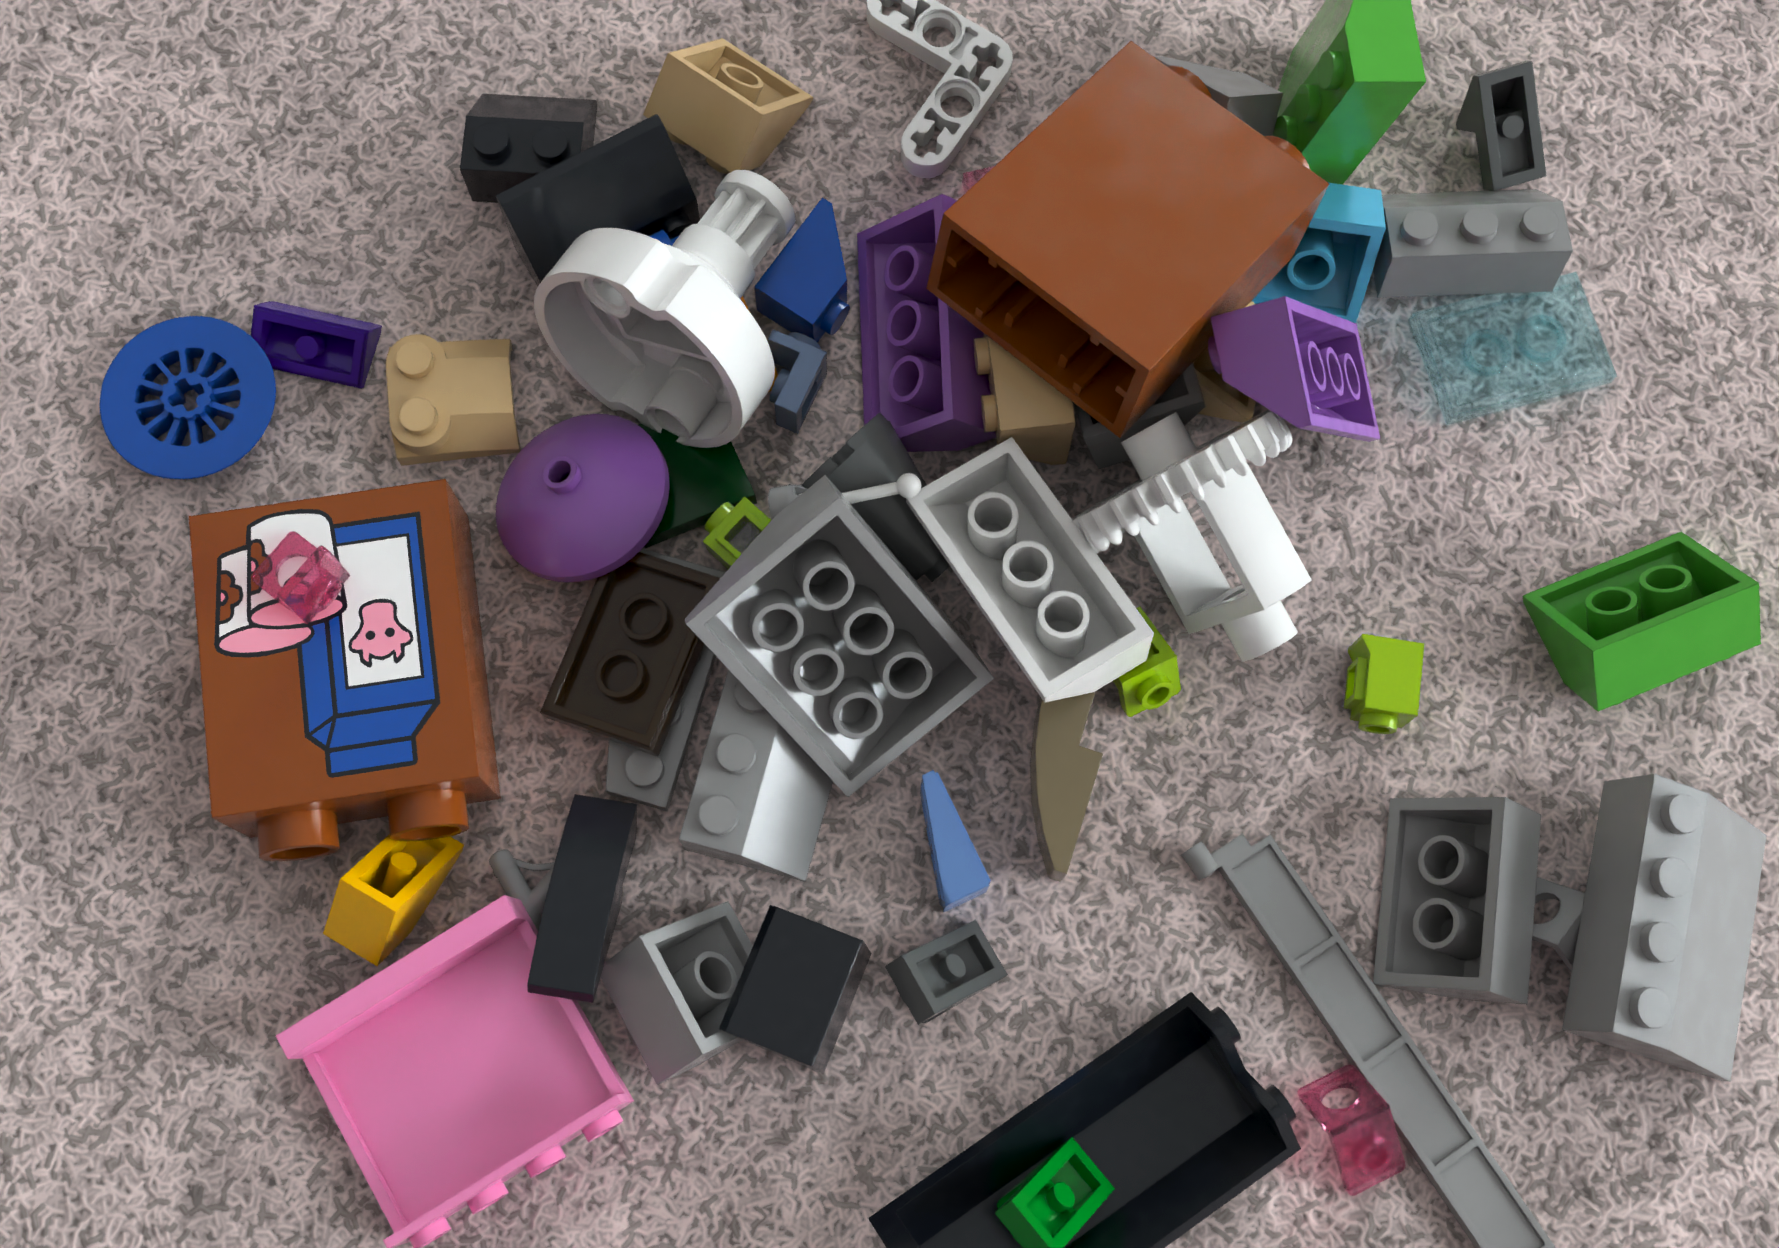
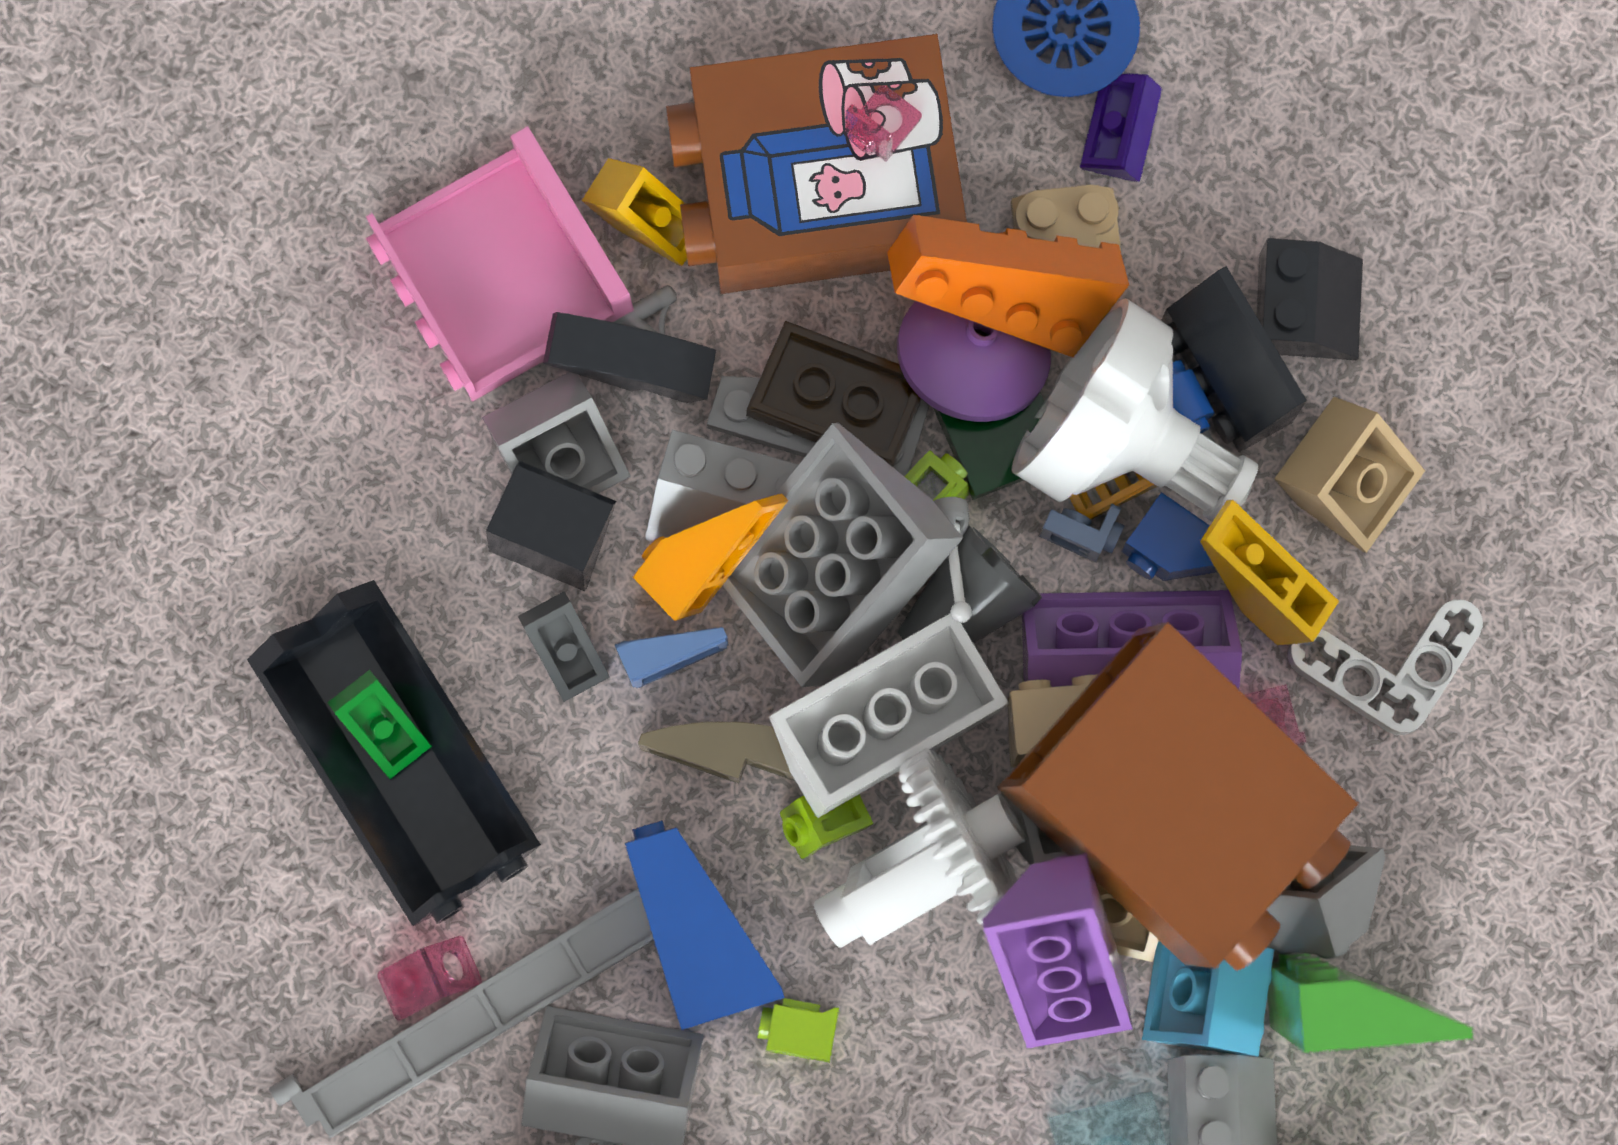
camera: 95 degrees right, 5 degrees up
(503, 438) = (1009, 282): none -> orange wedge
(835, 806) = (695, 563): none -> light orange slope
(860, 169) = (1266, 579): none -> yellow slope
(1290, 801) = (699, 941): none -> blue slope

